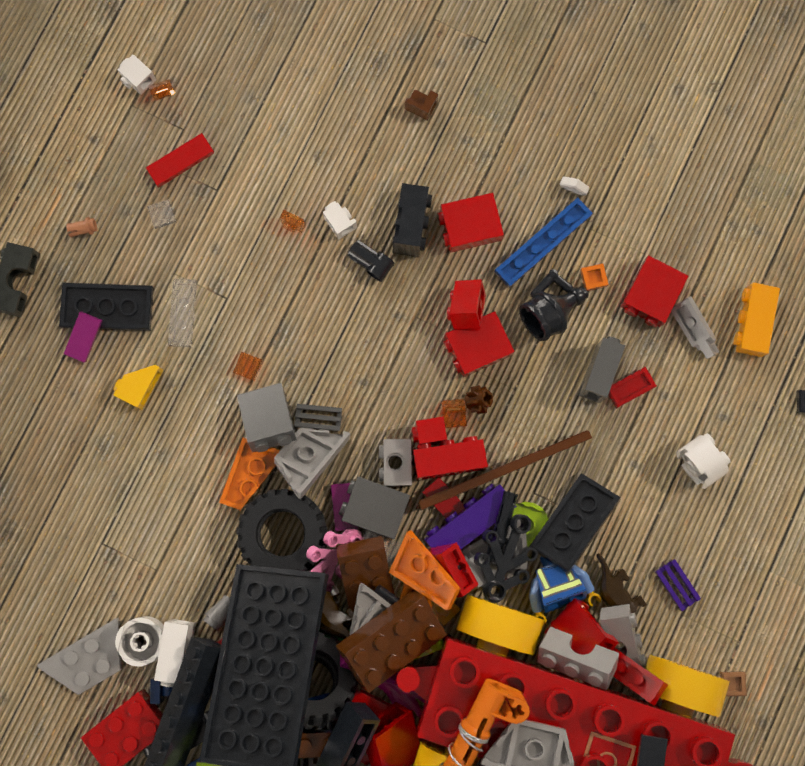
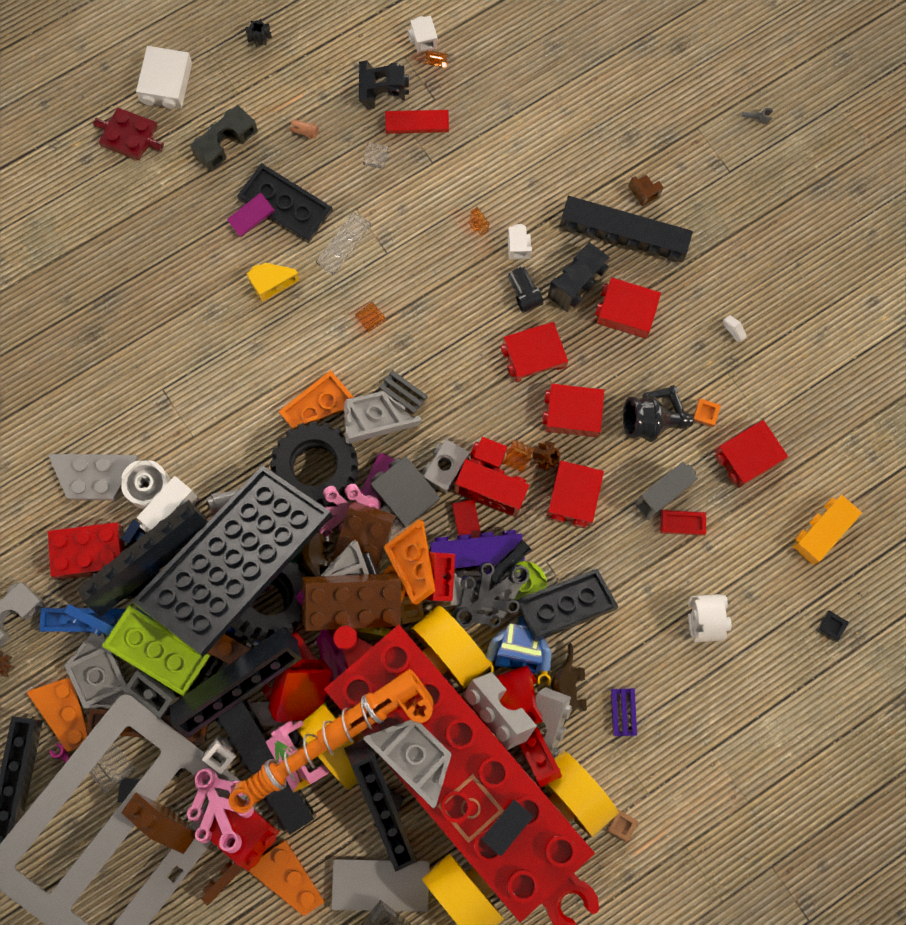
camera: 25 degrees right, 5 degrees down
(140, 140) = (395, 82): none -> black tile
(266, 418) = (360, 365): brick -> none
(412, 312) = (534, 351): none -> red panel
(426, 151) = (625, 229): none -> black brick
(467, 304) = (583, 370): red brick -> none
(504, 470) = (532, 525): reddish brown tile -> none
(524, 419) = (575, 494): none -> red brick
(543, 242) = (680, 359): blue plate -> none
(695, 327) = (769, 504): light grey hinge -> none

